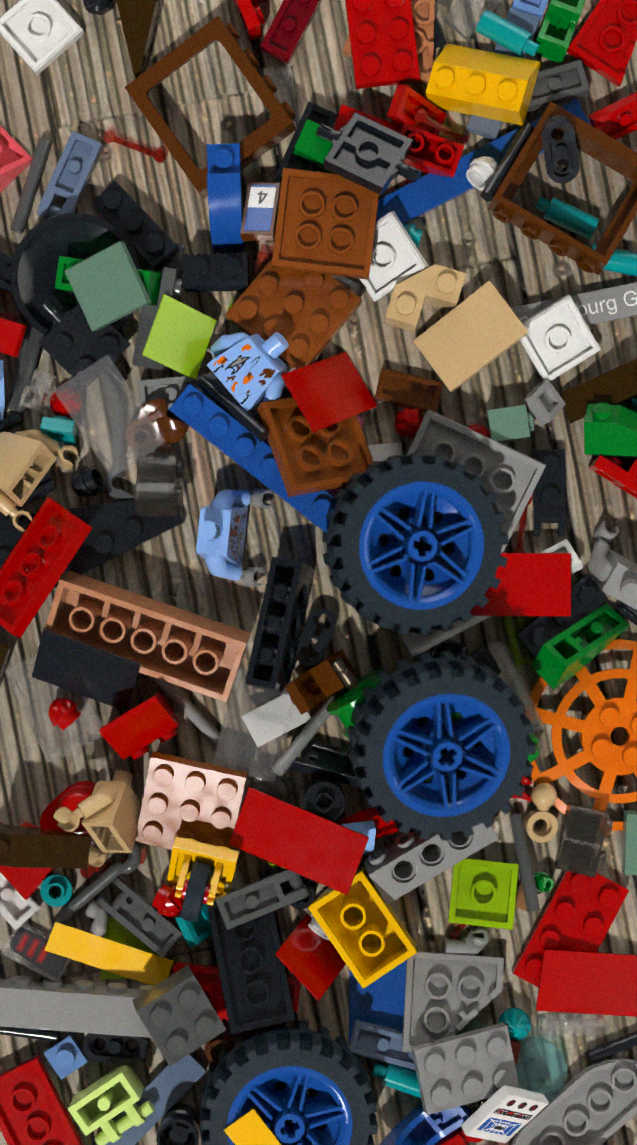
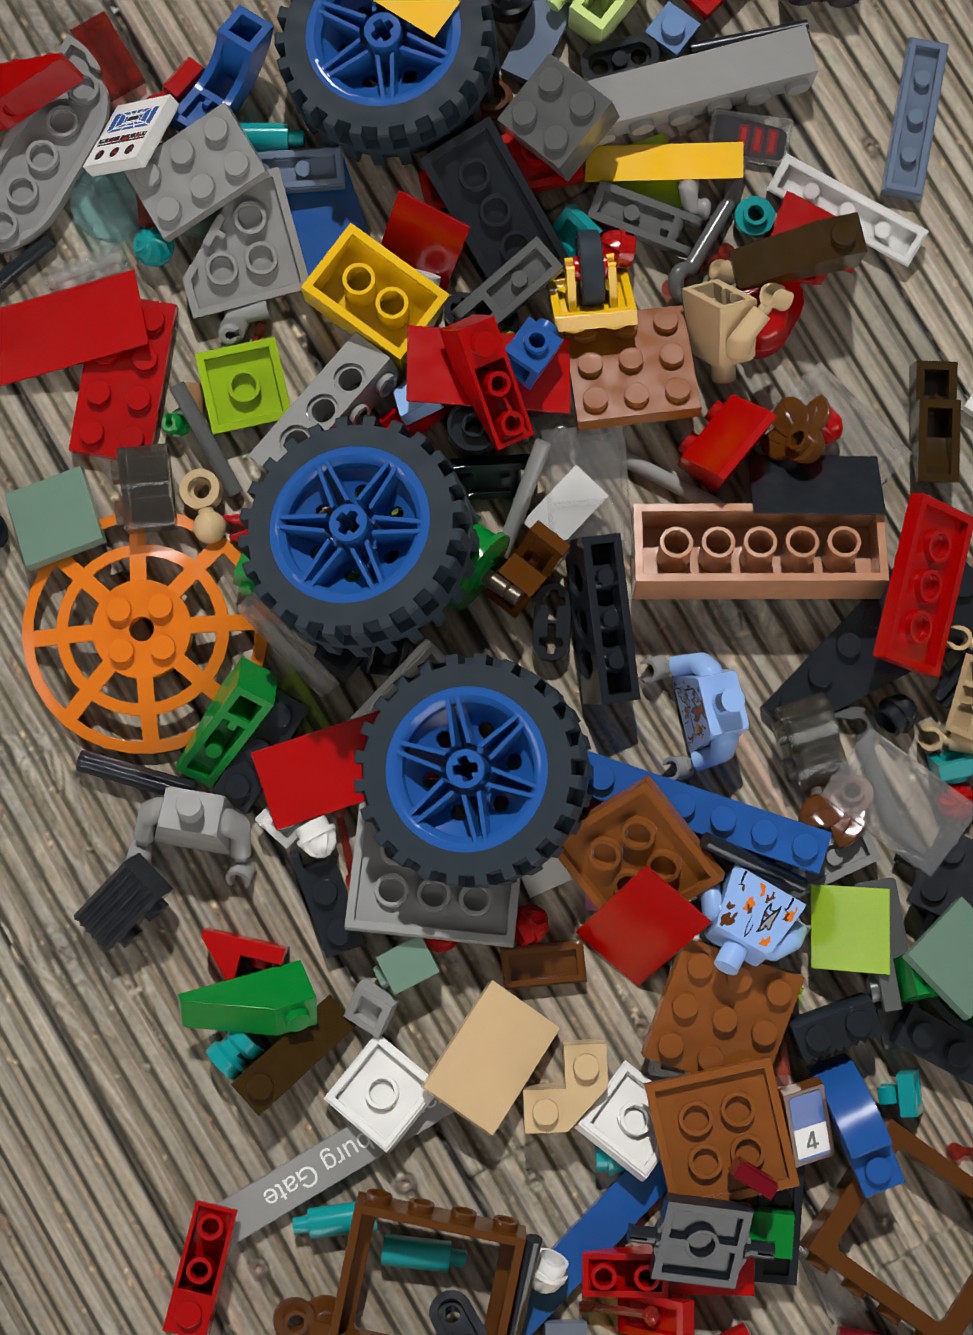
camera: 165 degrees right, 5 degrees down
(84, 715) = (797, 430): none -> reddish brown plate
(181, 209) = (905, 1092): none -> teal tile
(270, 836) = (533, 350): none -> blue brick
(302, 833) = (487, 378): none -> red slope
(315, 184) = (753, 1177): none -> dark red tile
(542, 538) = (317, 837): none -> white plate

